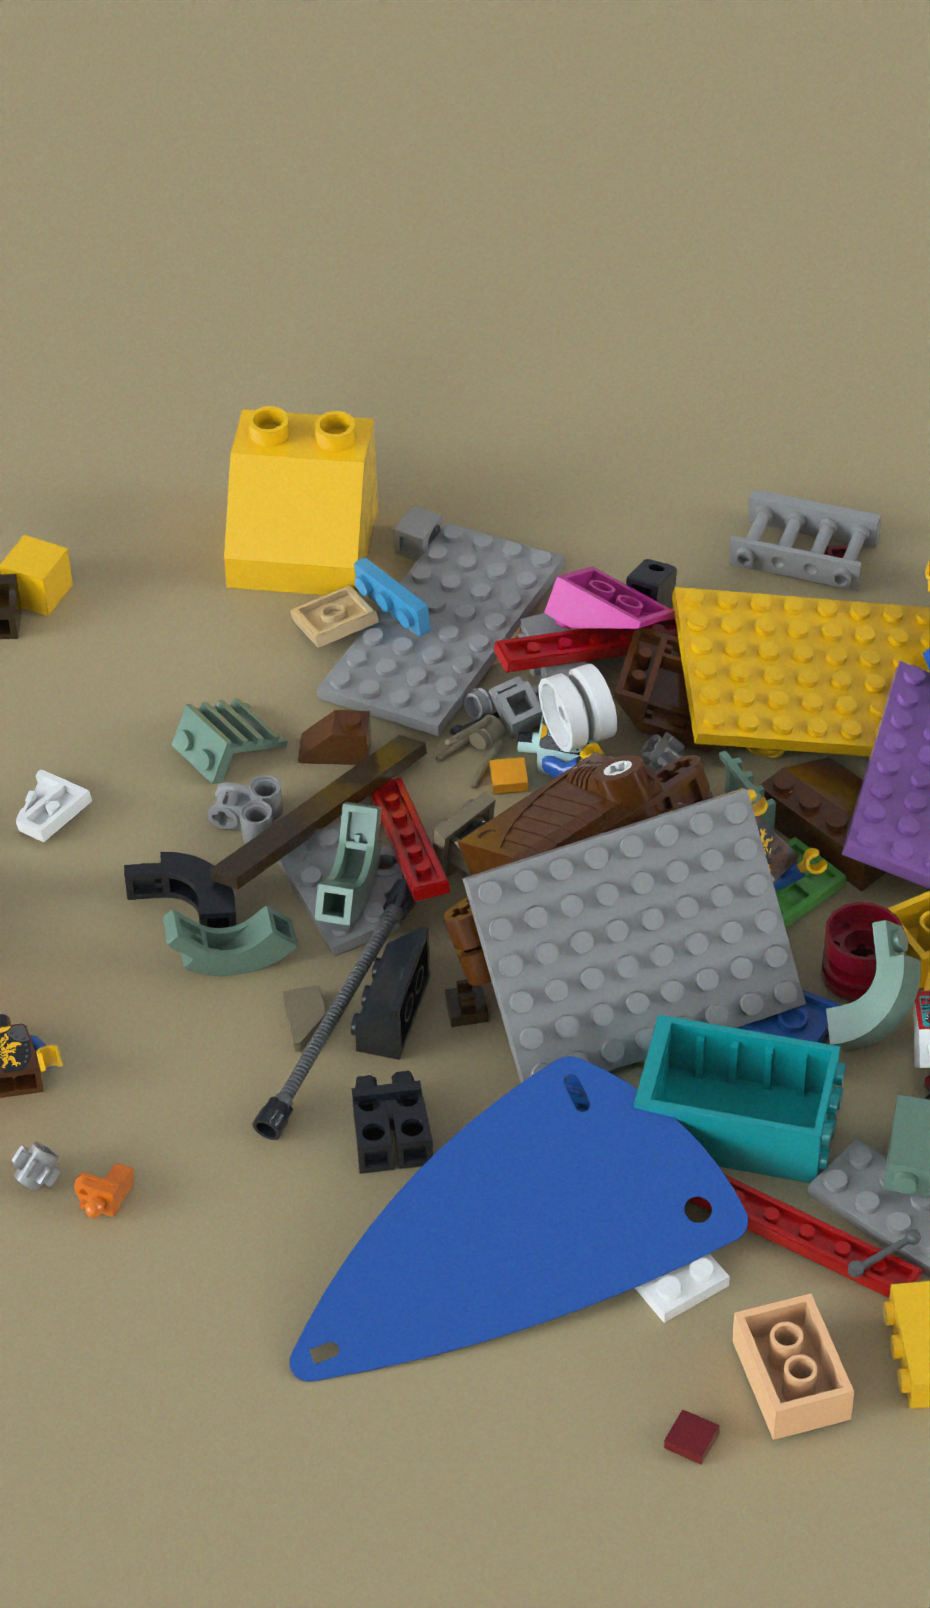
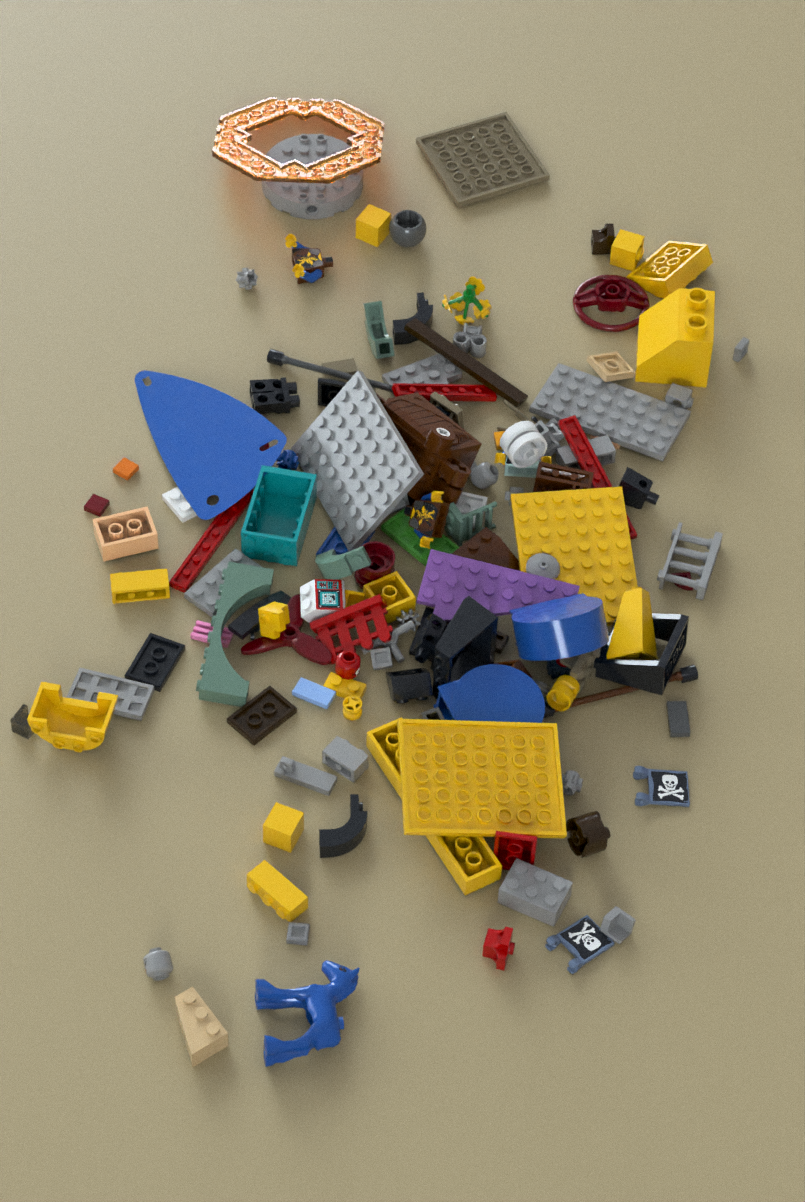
camera: 85 degrees right, 5 degrees up
(50, 806) = (467, 268): white wing -> none
(89, 518) = (672, 267): none -> yellow slope
(104, 1194) = (233, 304): orange piece -> none
(157, 604) = (610, 295): none -> dark red piece
(158, 794) = (482, 307): none -> yellow plant
(215, 733) = (515, 319): sand green plate -> none
(337, 739) = (520, 374): reddish brown slope -> none
(351, 881) = (412, 371): sand green arch -> none
(392, 597) = (617, 381): dark azure plate -> none
(585, 1385) = (125, 468): none -> orange tile
(600, 601) = (608, 459): dark pink slope -> none
(854, 711) = (543, 565): none -> light grey piece
(856, 1268) = (182, 561): dark grey hinge -> none

